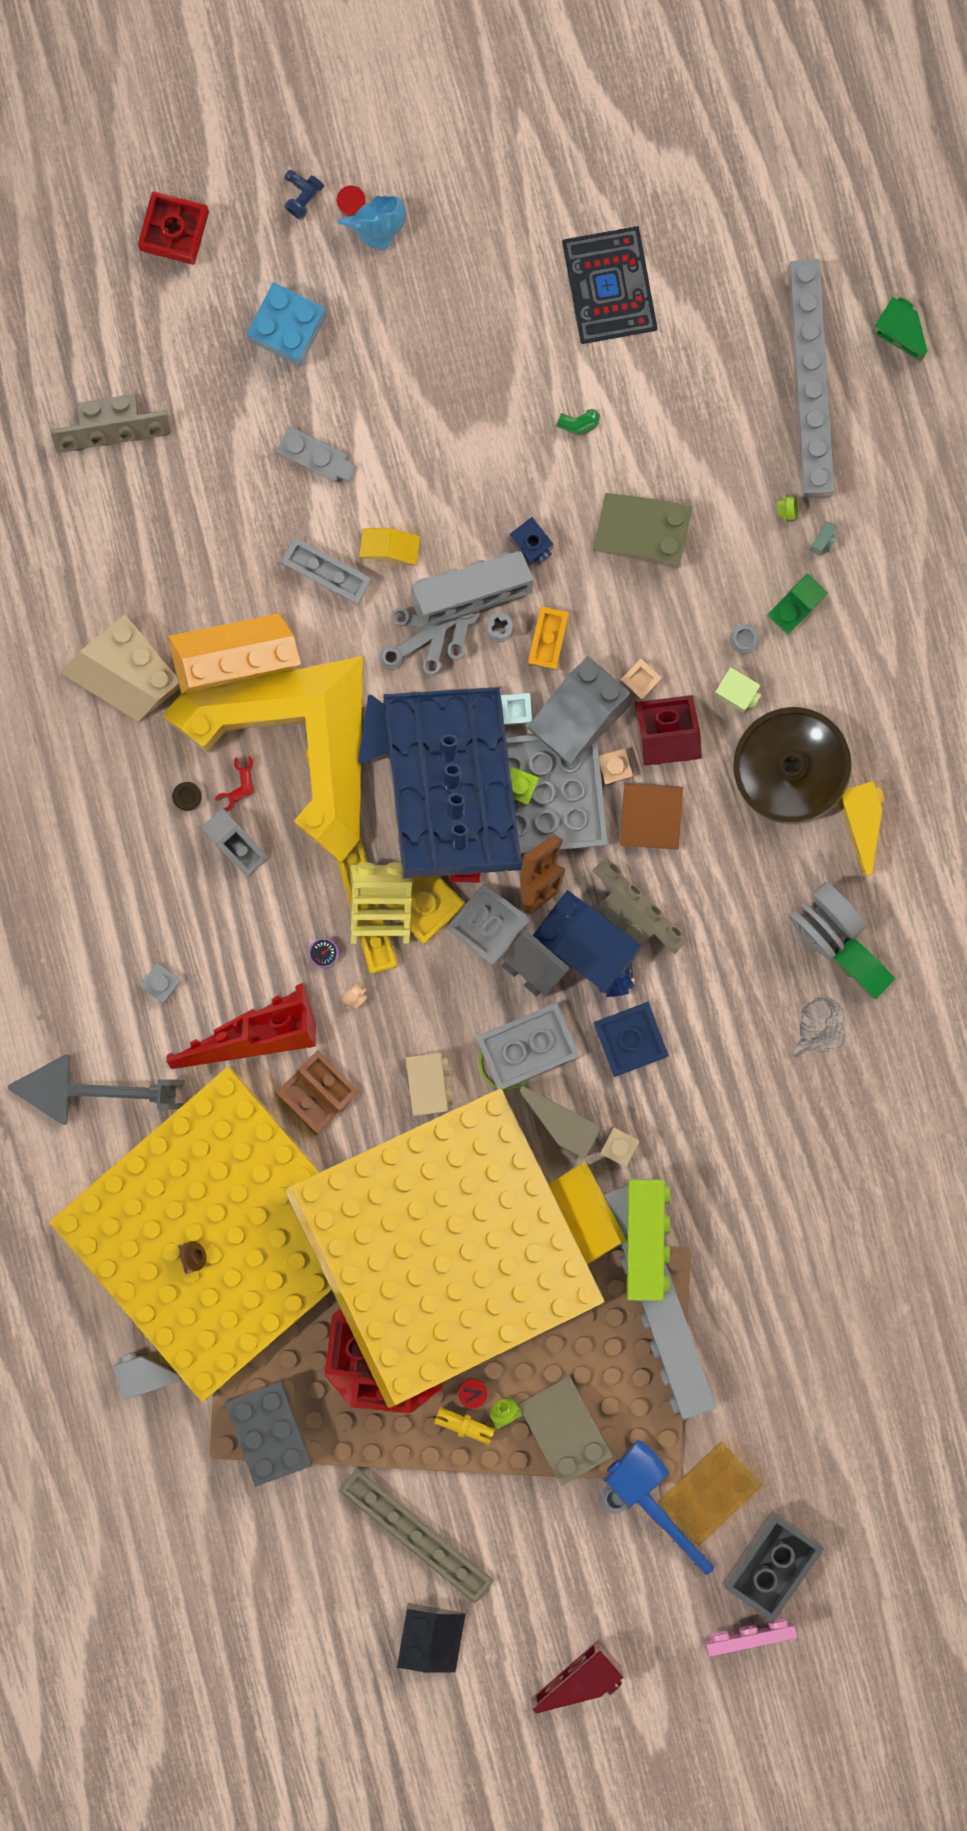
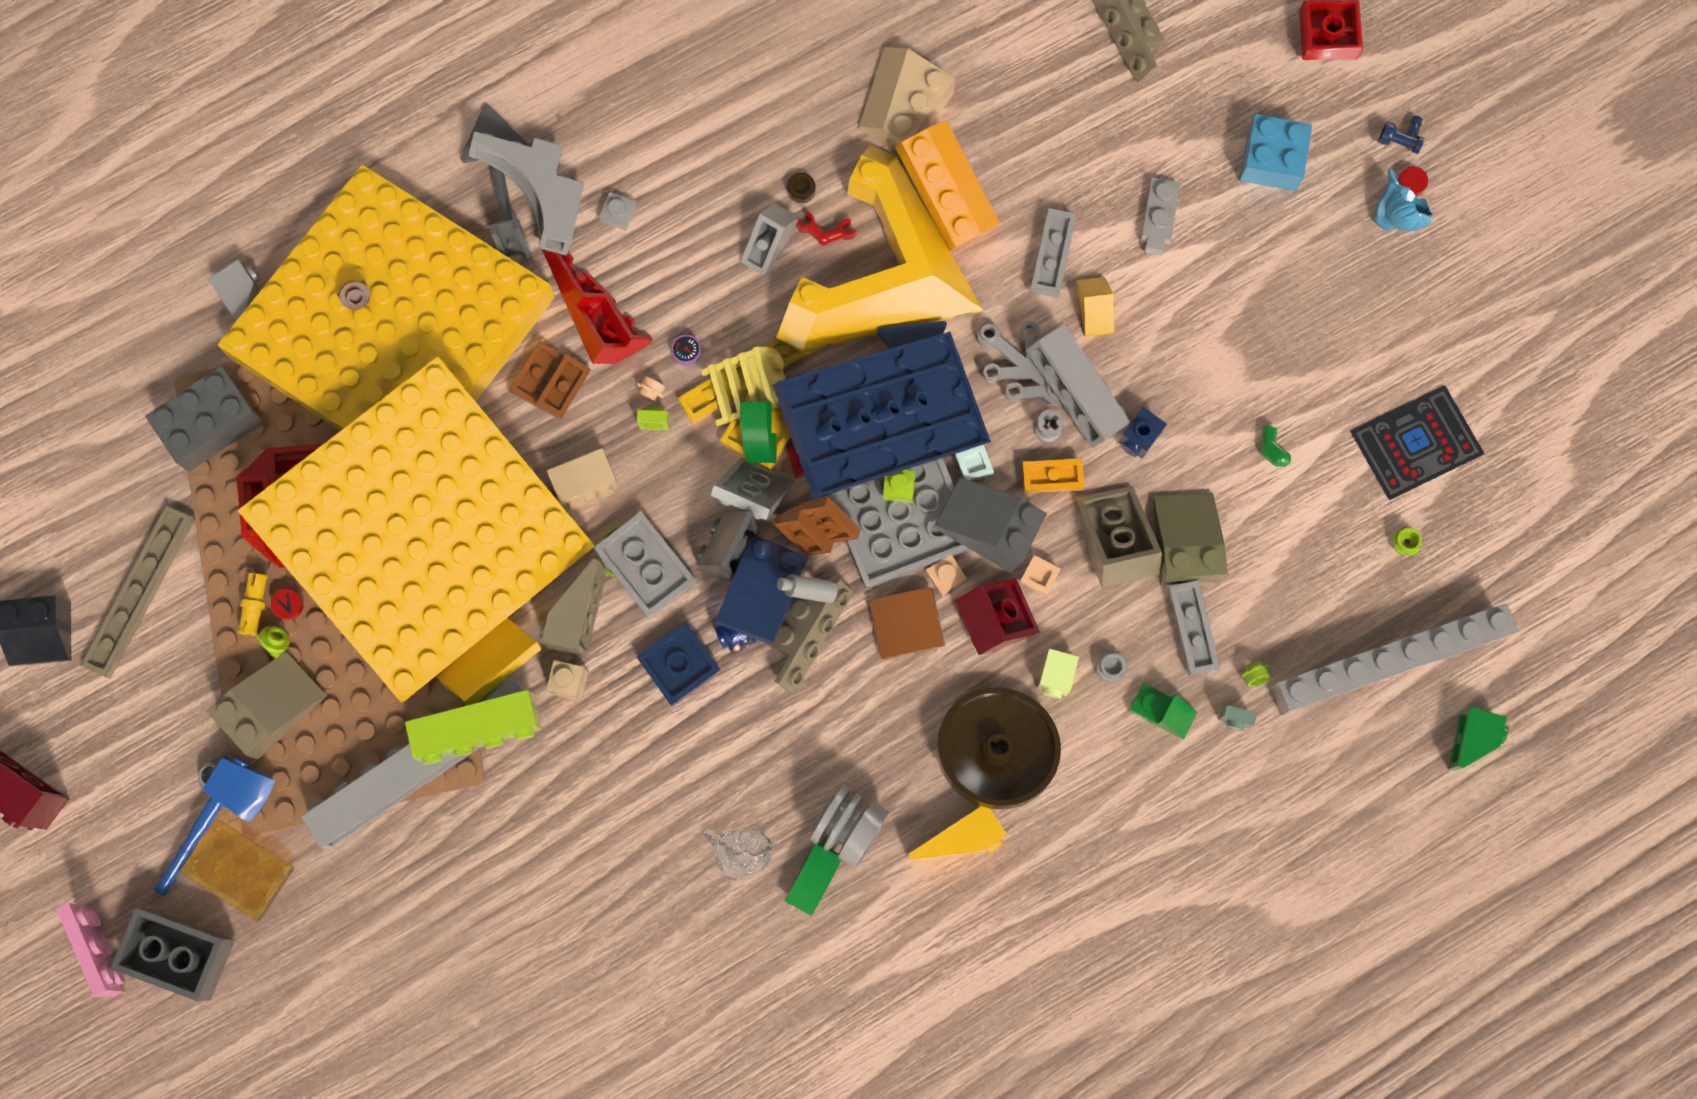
camera: 75 degrees right, 10 degrees down
(100, 1053) = (534, 171): none -> light grey arch
(385, 1001) = (653, 419): none -> lime plate
(432, 905) = (756, 429): none -> green slope
(601, 897) = (808, 588): none -> light grey cylinder
(623, 595) = (1118, 537): none -> dark tan slope
(702, 320) = (1414, 538): none -> lime plate
(729, 552) = (1193, 628): none -> light grey plate

